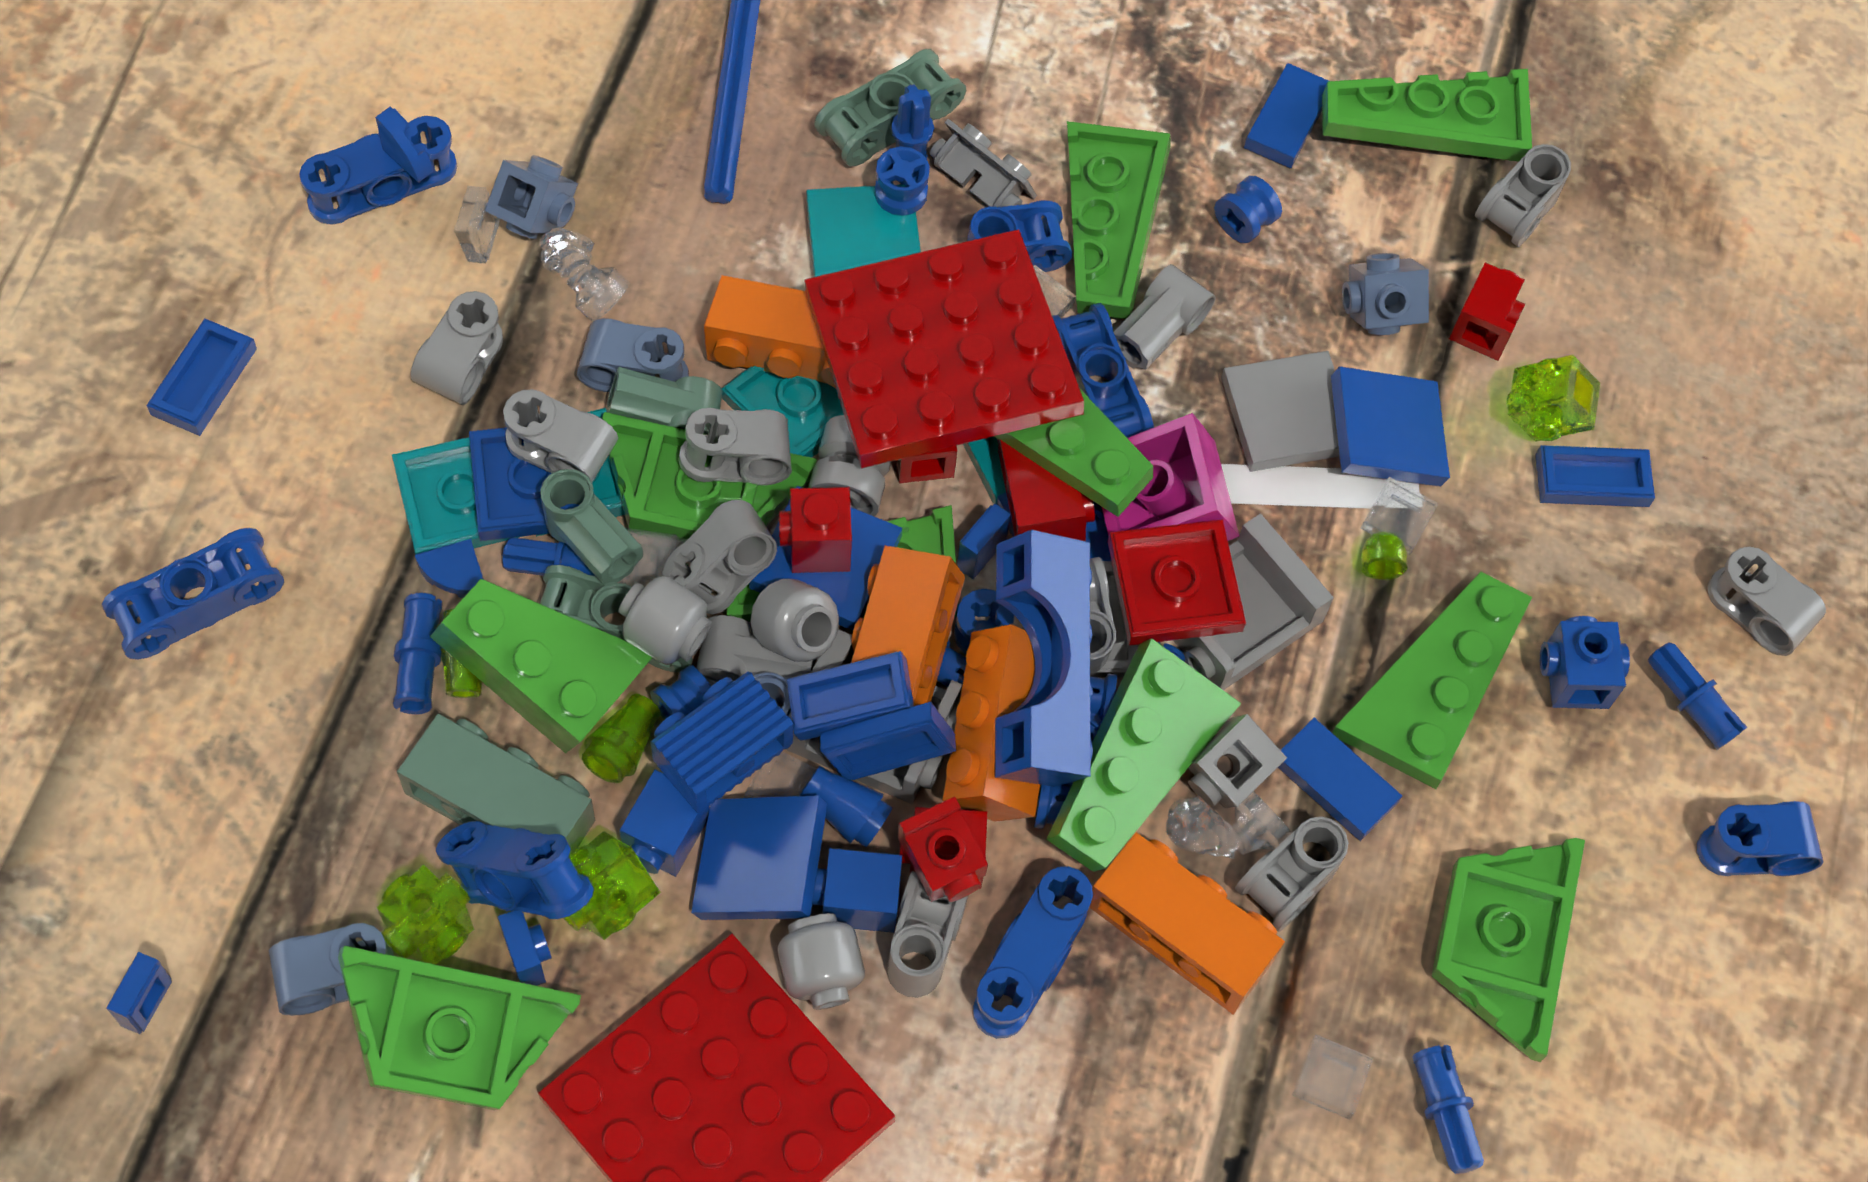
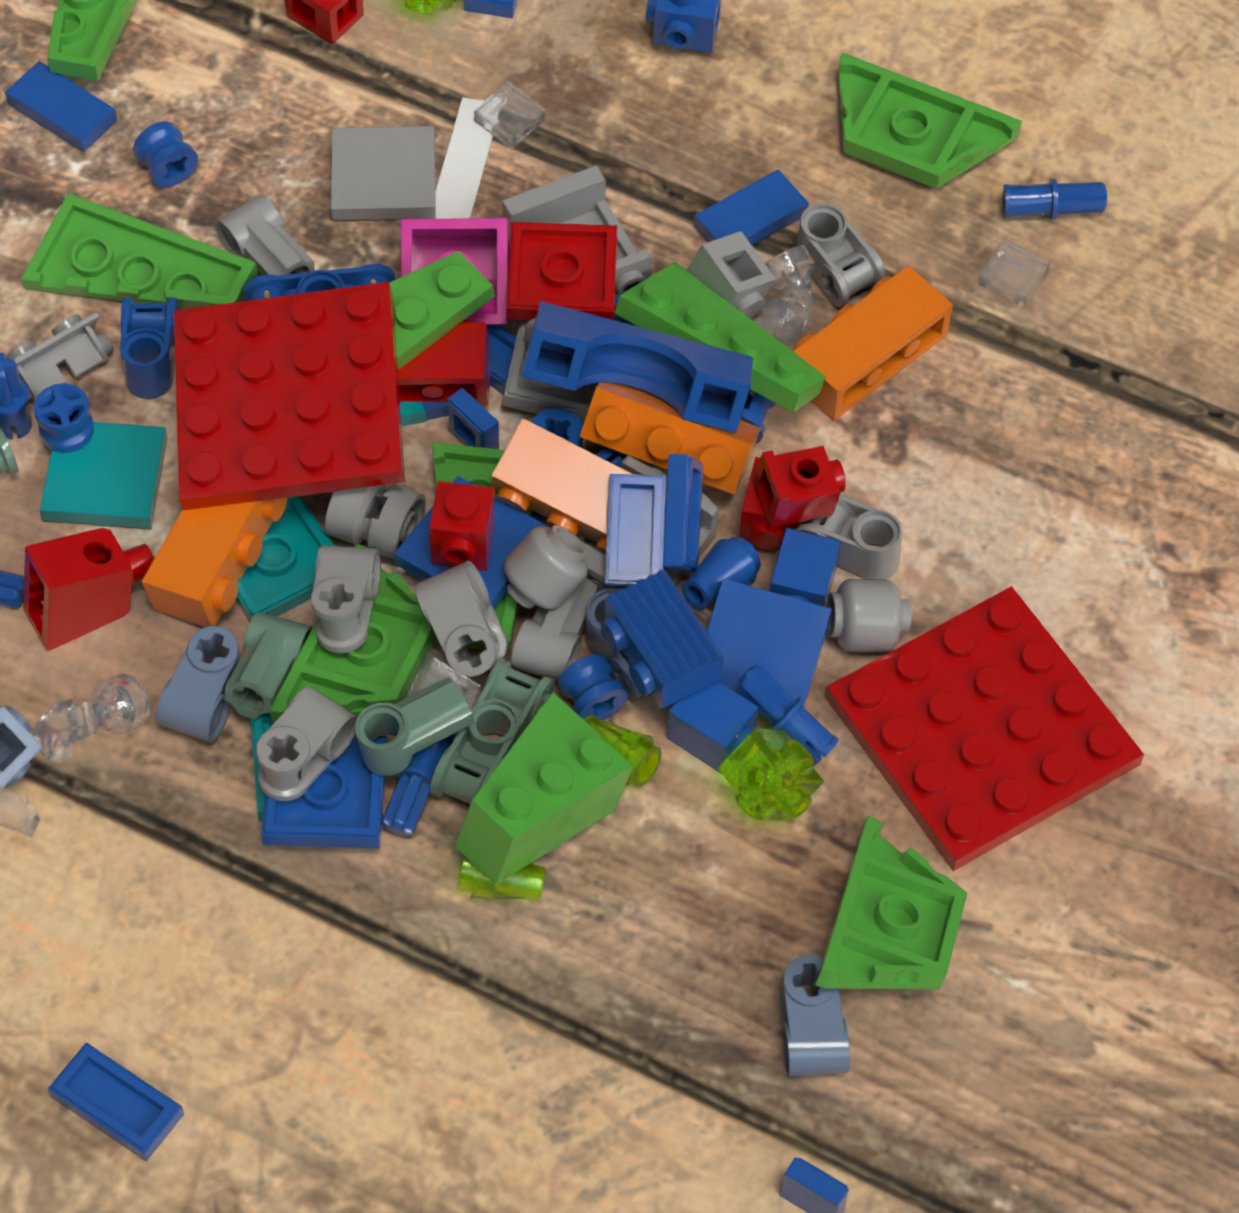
camera: 75 degrees left, 5 degrees down
(161, 594) = (399, 1152): blue piece -> none
(417, 654) = (492, 917): blue pin -> none
(427, 935) = (777, 927): clear neon green brick -> none
(439, 495) = (314, 884): teal tile -> none
(451, 567) = (403, 879): blue tile -> none
(460, 348) = (160, 846): light grey piece -> none
(475, 780) = (659, 859): sand green brick -> none
(515, 869) = (757, 831): blue piece -> none
(526, 947) = (818, 854): blue plate -> none
(664, 620) = (530, 667): light grey head -> none
(681, 892) = (785, 712): none -> blue axle
(717, 227) = (79, 584): none -> red torso
(1032, 952) = (882, 457): blue piece -> none
(1384, 556) = (548, 132): clear neon green hinge -> none
(1387, 293) = (290, 65): sand blue brick -> none
(1389, 426) = (422, 99): blue tile -> none
(1435, 687) = (685, 131): bright green wing -> none

